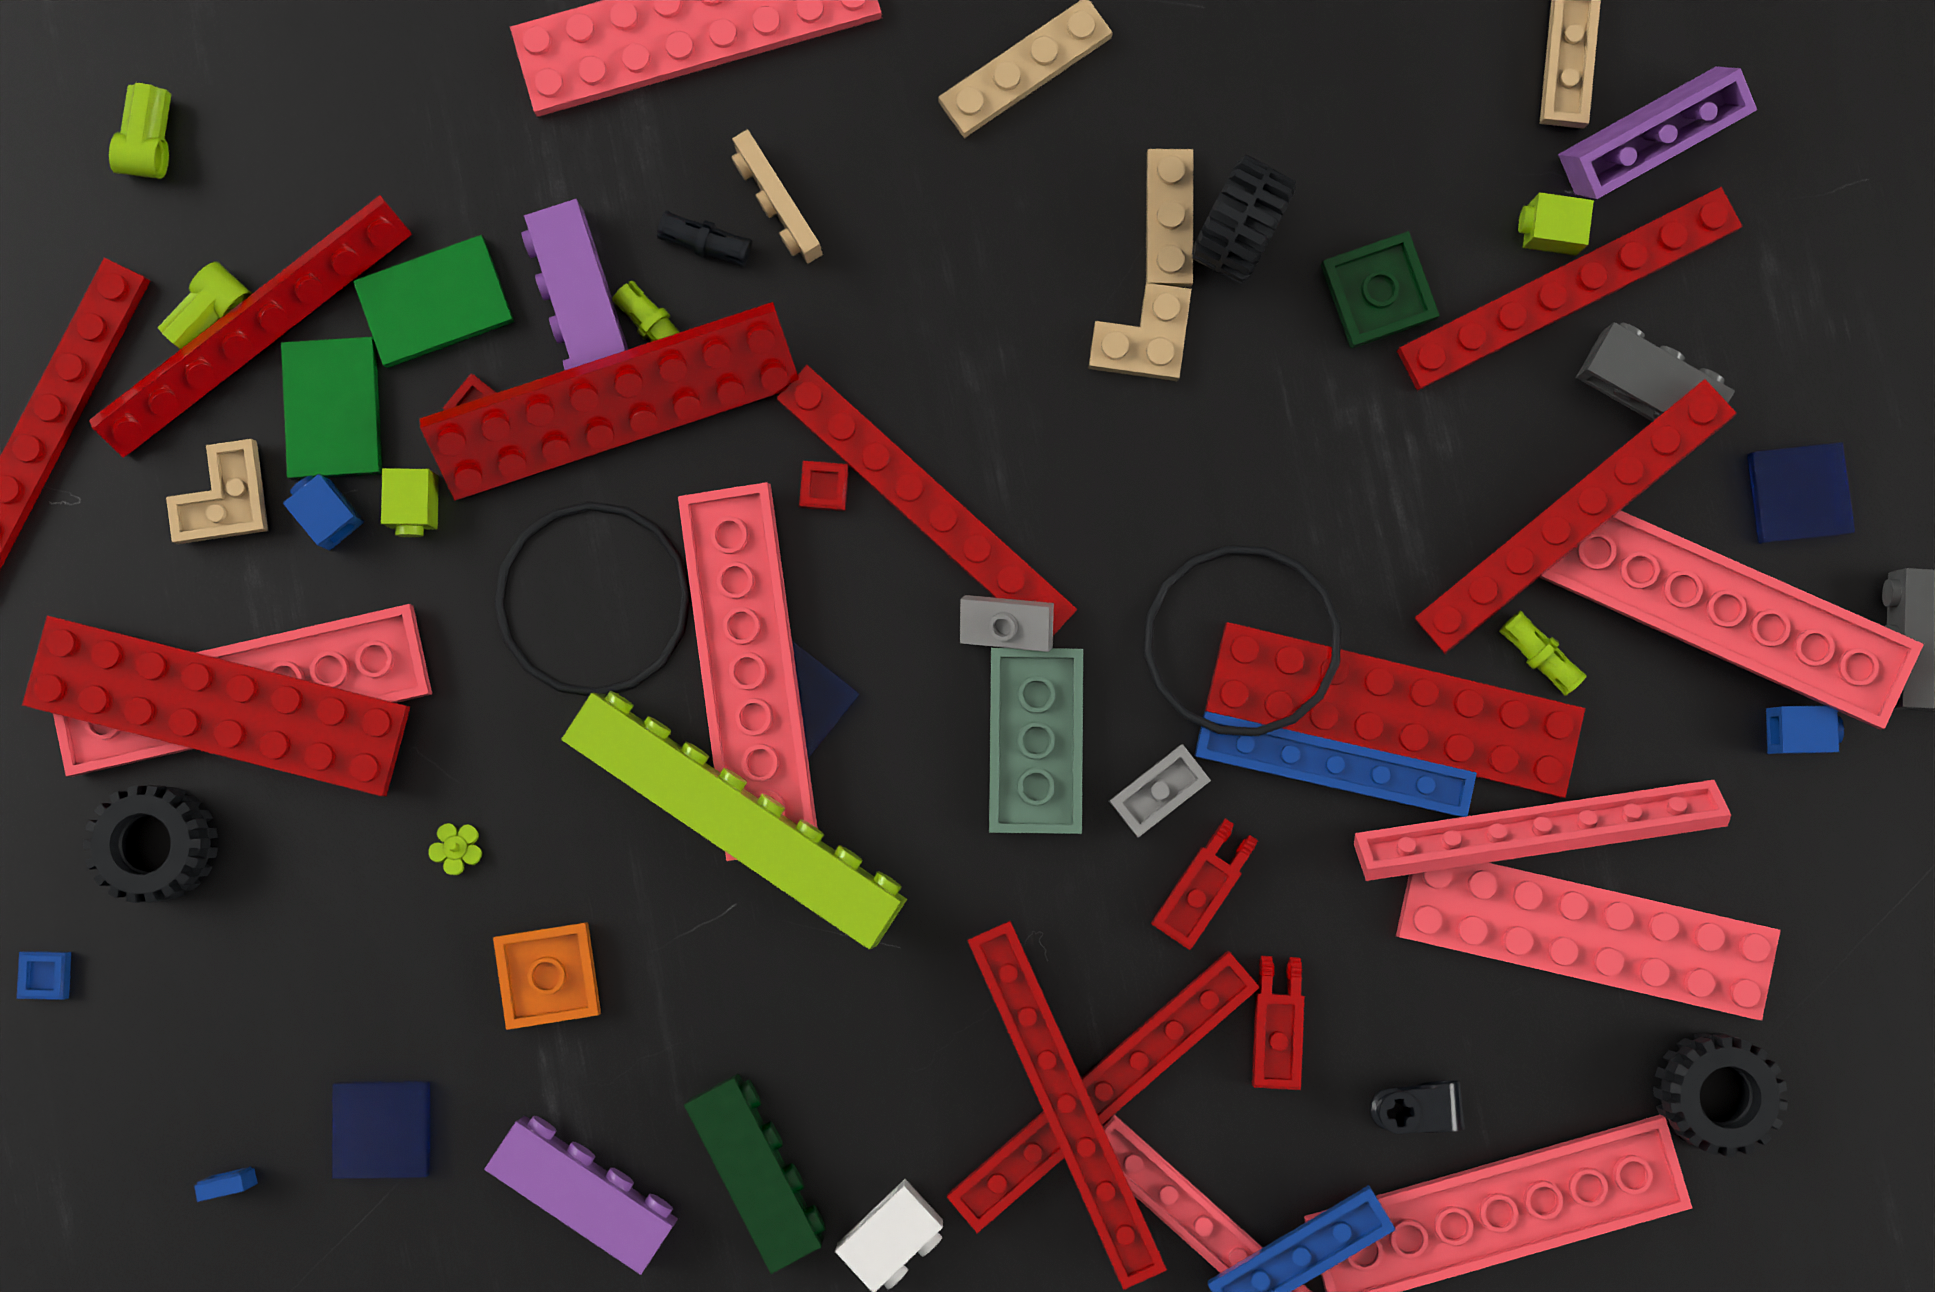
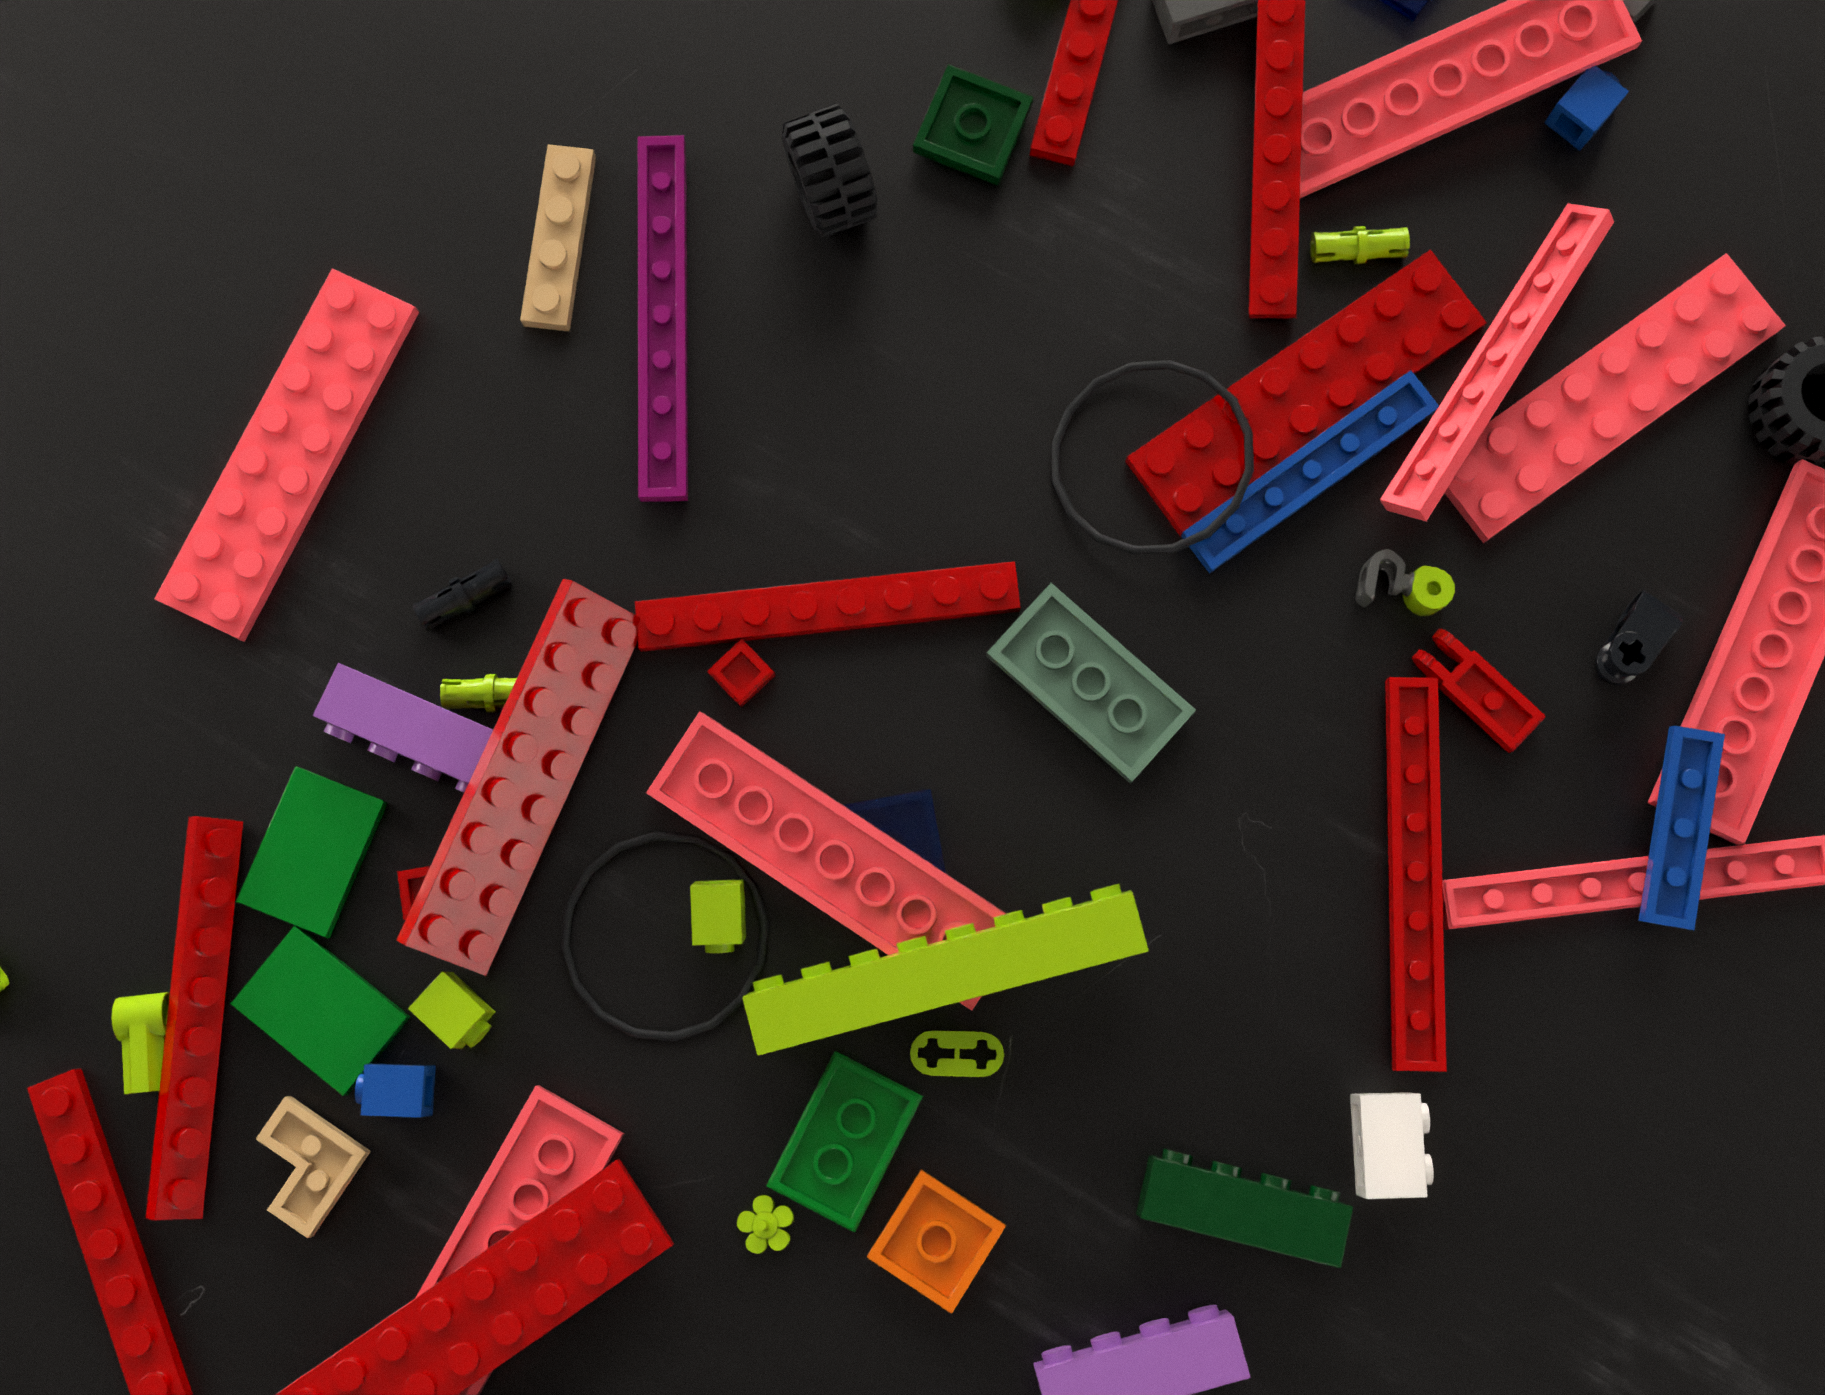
camera: 45 degrees left, 5 degrees down
(560, 851) = (844, 1141): none -> green tile
(637, 623) = (718, 914): none -> lime brick
(680, 884) = (955, 1066): none -> lime beam
(775, 198) = (482, 510): tan plate -> none
(1006, 623) = (978, 623): light grey plate -> none
(1031, 196) = (662, 320): none -> magenta plate
(1067, 1105) = (1405, 907): red plate -> none
(1152, 348) = (861, 330): tan plate -> none
(1159, 790) = (1214, 622): light grey plate -> none
(1169, 217) = (774, 231): tan plate -> none
(1202, 888) = (1320, 655): red hinge -> none
(1319, 921) = (1423, 590): none -> leg

